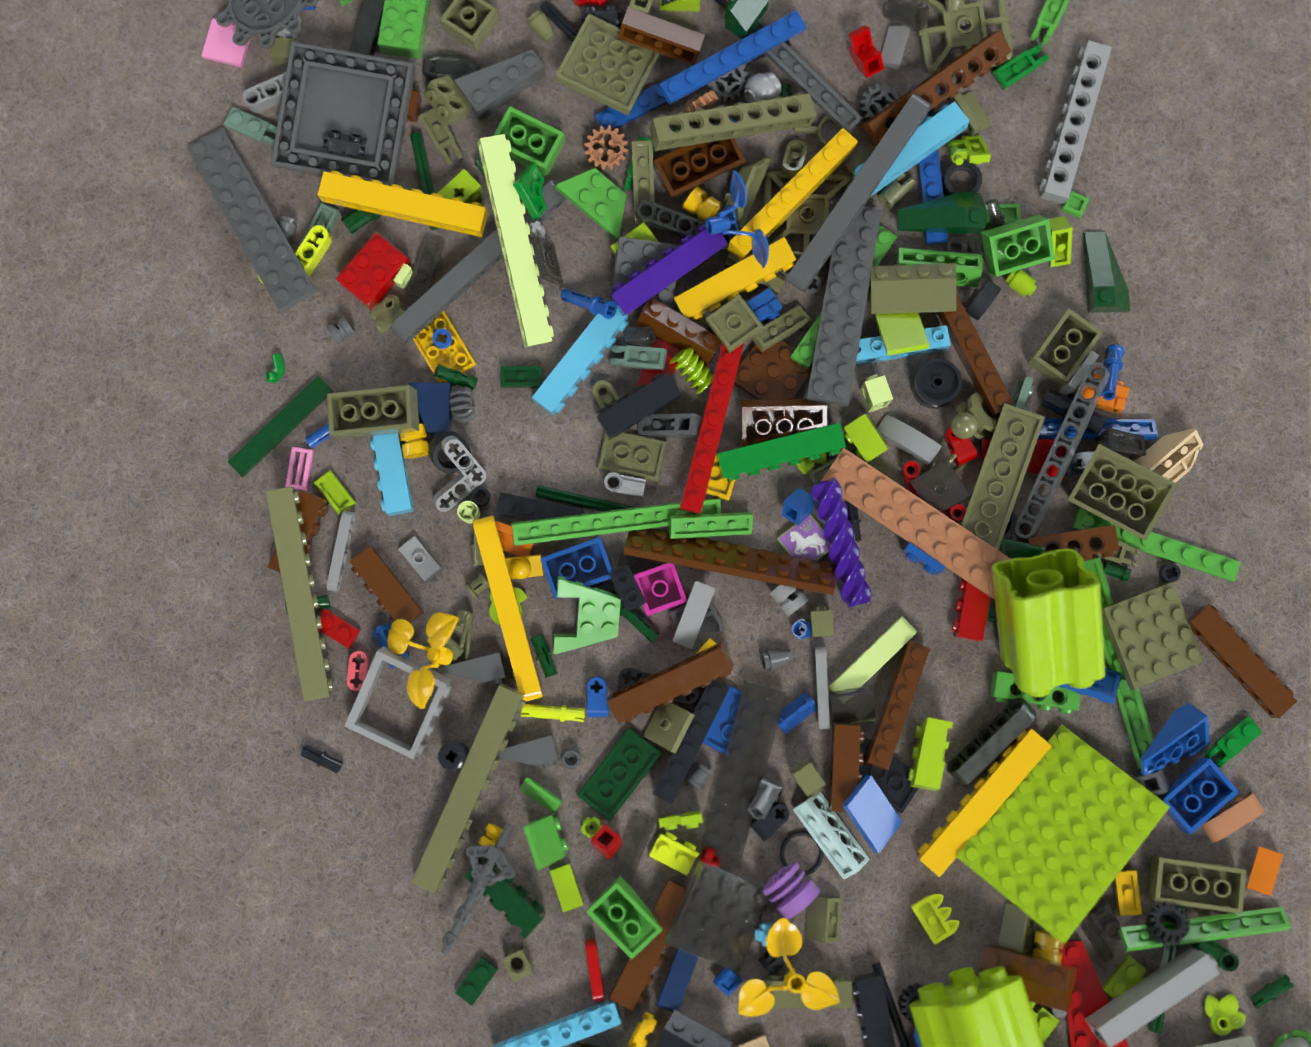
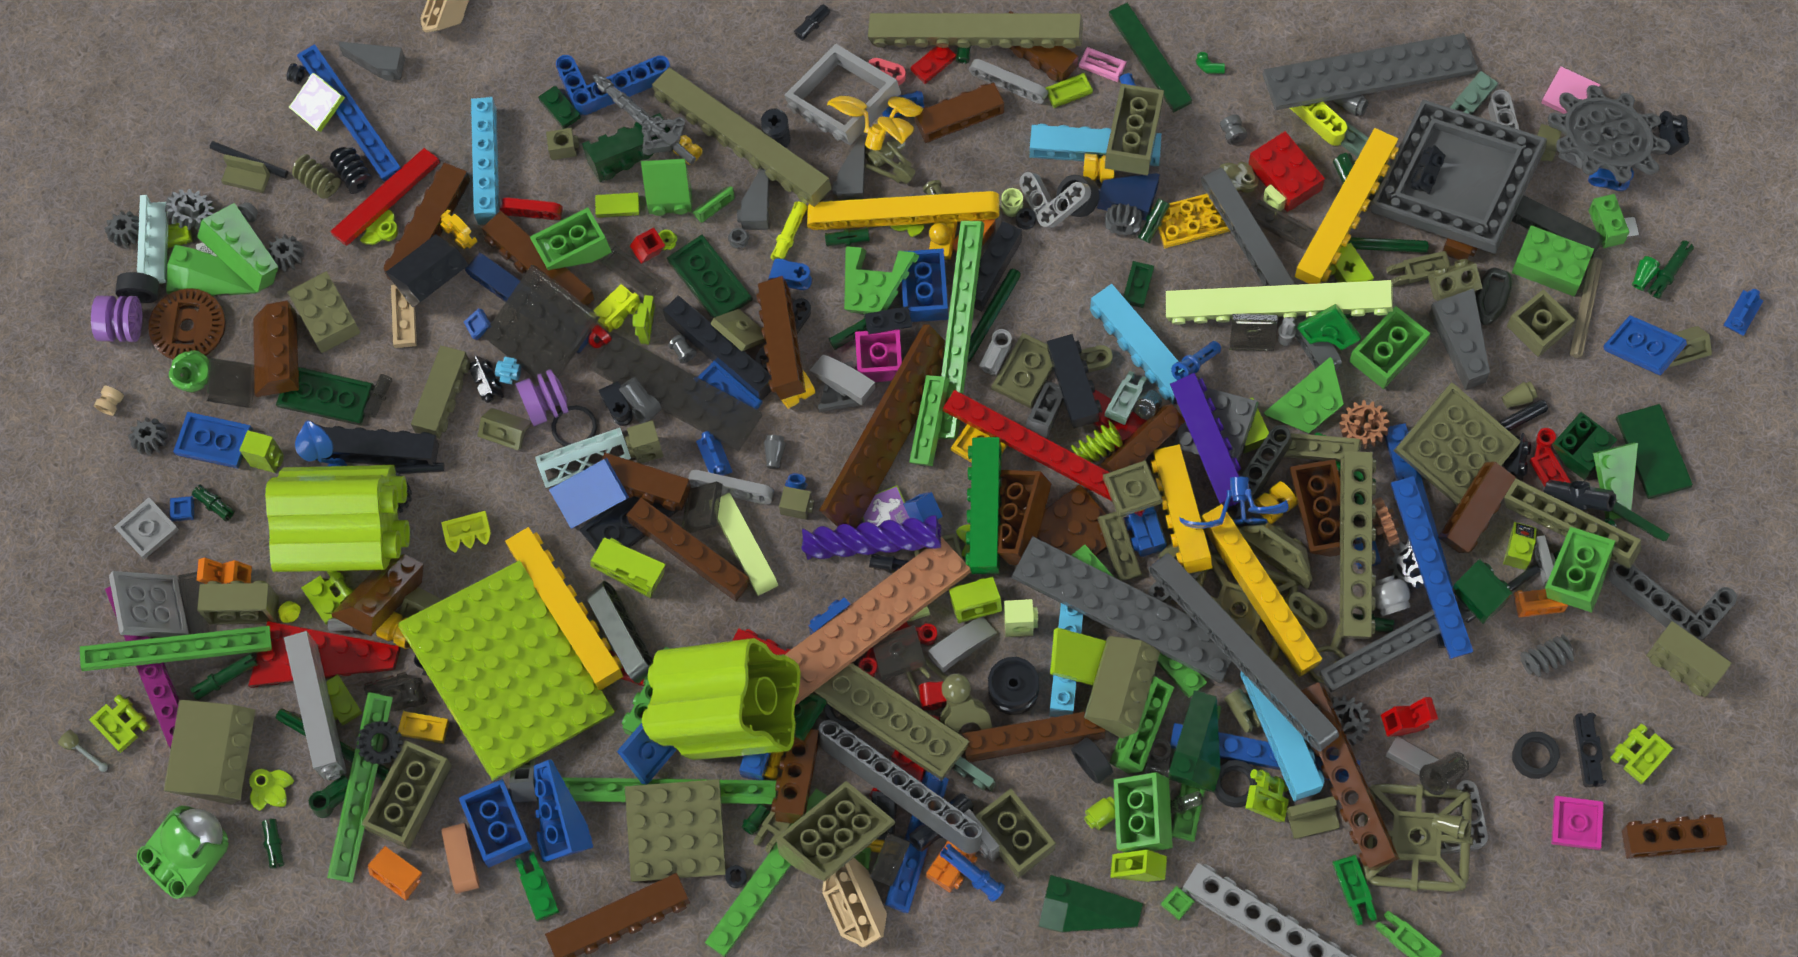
camera: 110 degrees right, 15 degrees down
(419, 558) = (979, 150): light grey plate -> none
(436, 913) = (591, 92): none -> blue beam
(444, 332) = (1201, 211): blue bush -> none
(788, 607) = (821, 476): light grey wheel -> none
(815, 993) = (451, 338): yellow plant -> none

